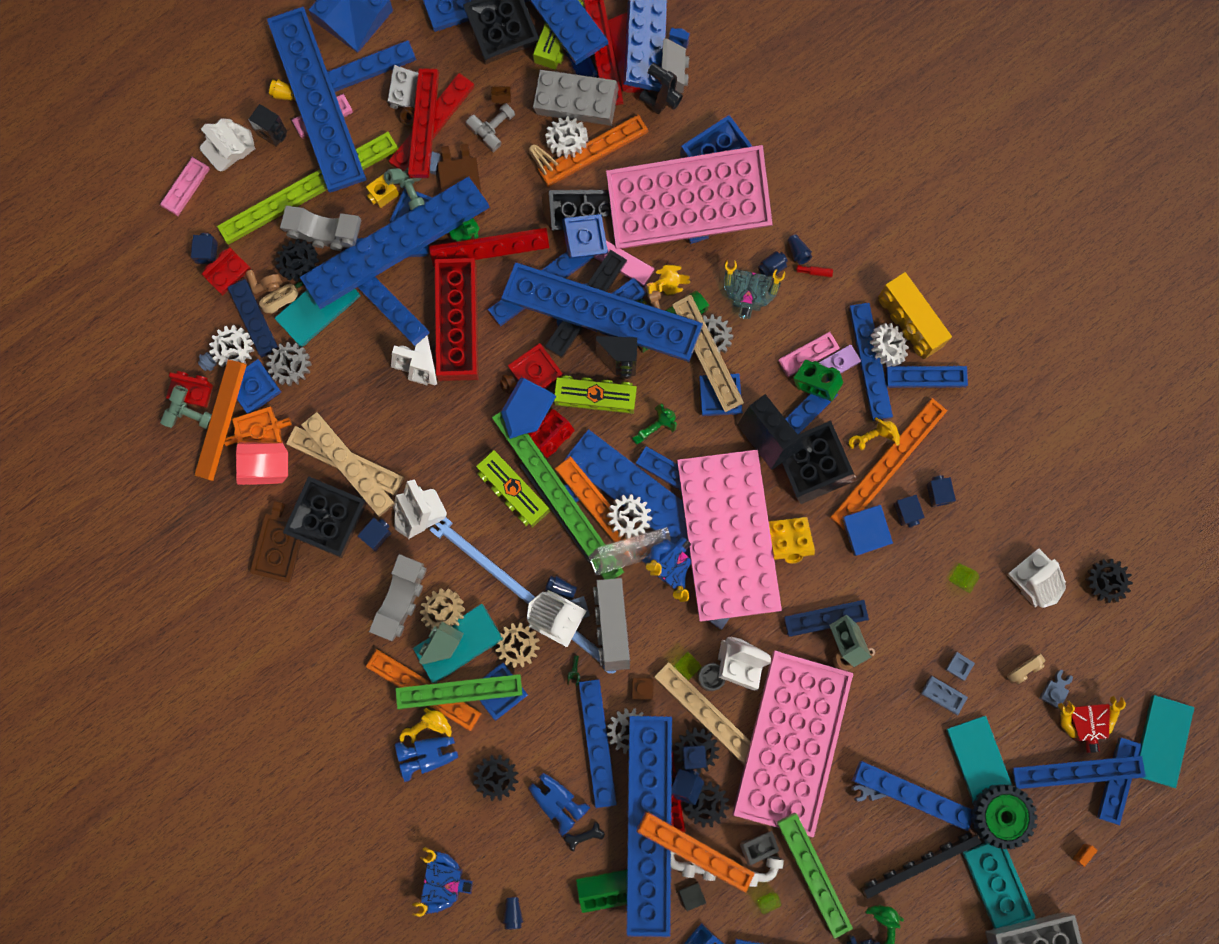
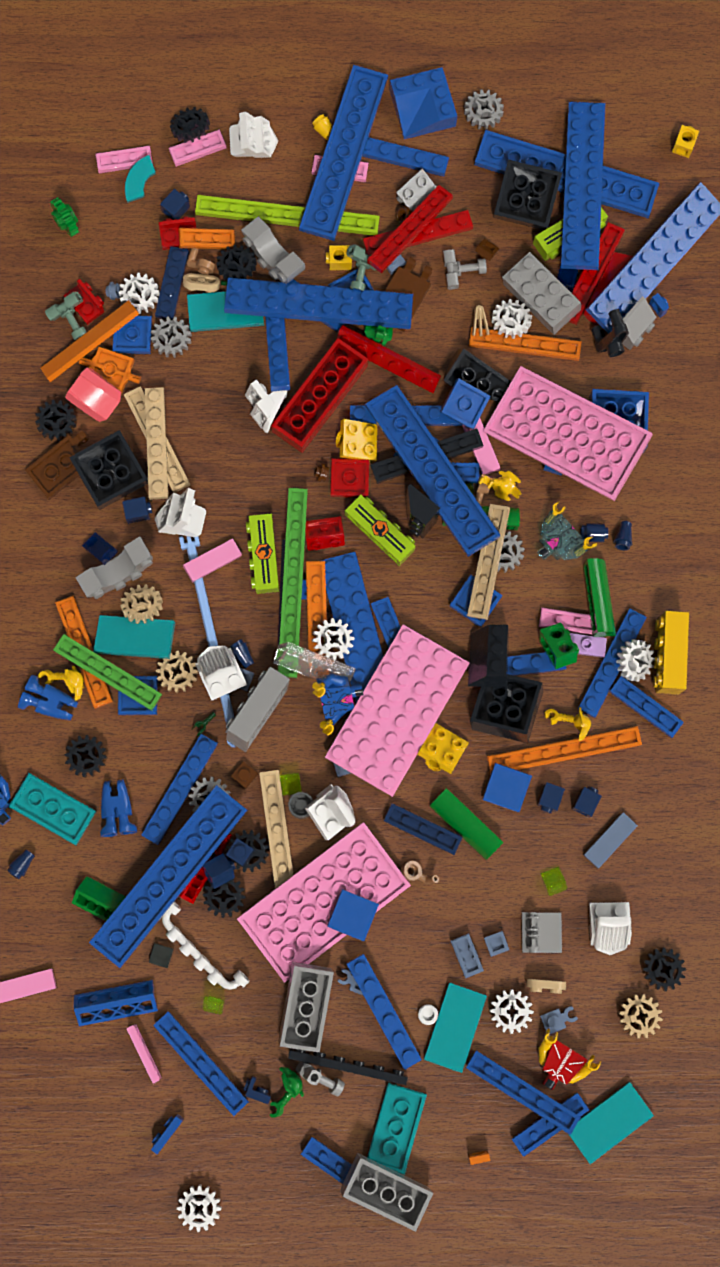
camera: 35 degrees right, 0 degrees up
(115, 329) = (64, 217): none -> green gear
(128, 242) = (121, 159): none -> bright pink tile
(152, 249) = (137, 178): none -> teal tile
(163, 171) = (190, 124): none -> black gear
(238, 515) = (58, 427): none -> black gear
(253, 258) = (206, 238): none -> orange tile
(268, 125) = (292, 146): black brick -> none
(369, 590) = (100, 548): none -> clear blue tile
(442, 644) = (121, 627): sand green slope -> none
(473, 528) = (212, 560): none -> bright pink tile
(502, 845) = (52, 809): none -> teal tile
(517, 334) = (357, 440): none -> yellow plate
(526, 408) = (319, 500): blue tile -> none
(574, 840) = (108, 847): black piece -> none
(665, 418) = (419, 587): green piece -> none
(695, 852) = (186, 922): orange tile -> none
(759, 847) = (237, 958): dark grey slope -> none
(814, 875) = (262, 1010): bright green plate -> none
(816, 271) = (624, 562): red pin -> none
(819, 316) = (599, 597): none -> green brick
(826, 735) = (352, 915): none -> blue tile
(849, 844) = (305, 1007): none -> light grey brick
(850, 641) = (426, 858): sand green brick -> none
(858, 586) = (466, 824): none -> green brick
(903, 897) = (314, 1076): none -> light grey bar
(950, 769) = (428, 1014): none -> white tile
(983, 509) = (610, 840): none -> sand blue tile
(988, 628) = (541, 932): none -> light grey hinge
(1019, 818) = (442, 1095): wheel -> none
(1021, 719) = (511, 1021): none -> white gear
(1113, 640) = (631, 1018): none -> tan gear

